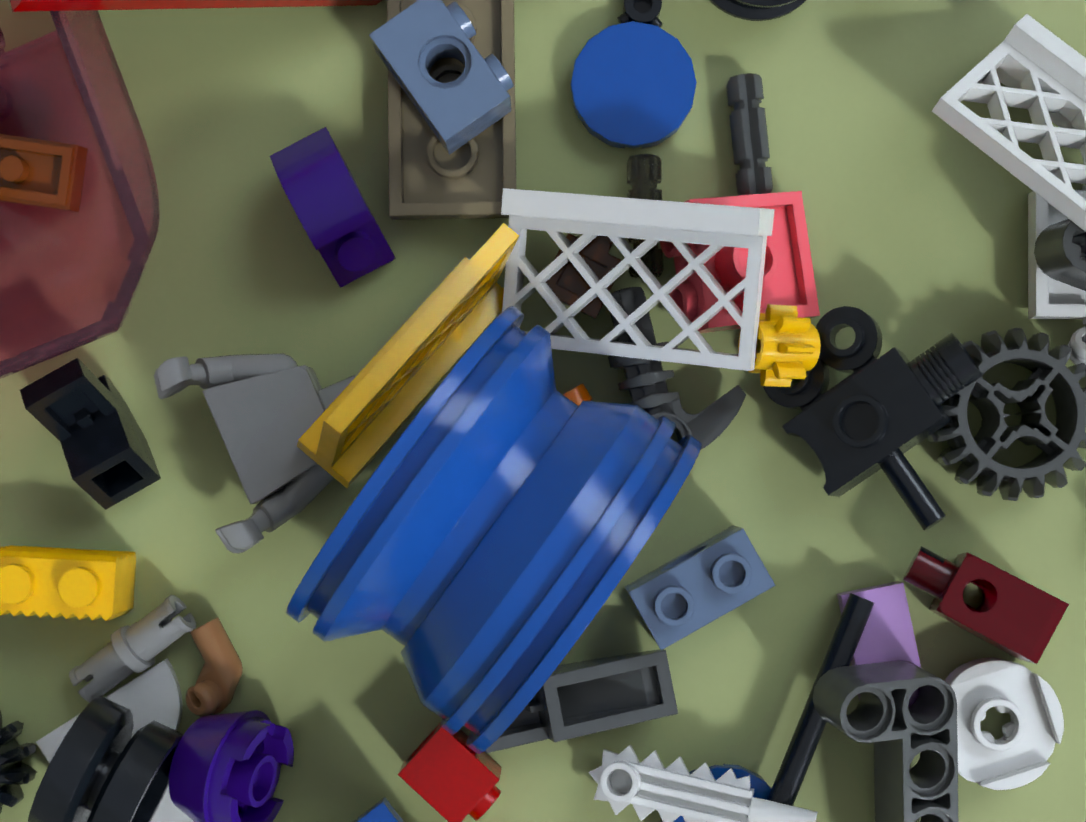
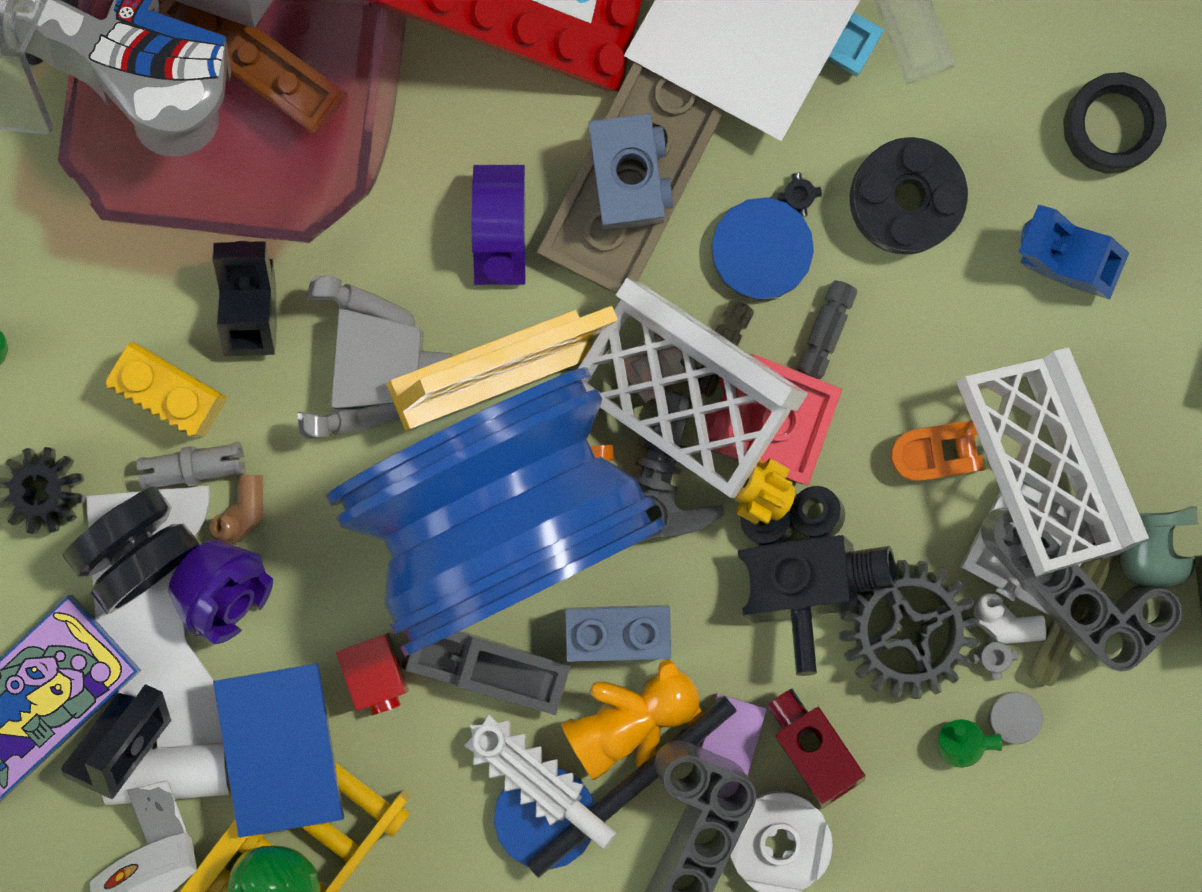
camera: 25 degrees right, 0 degrees up
(764, 675) = (632, 719): none -> light orange piece
(924, 216) = (920, 454): none -> orange plate

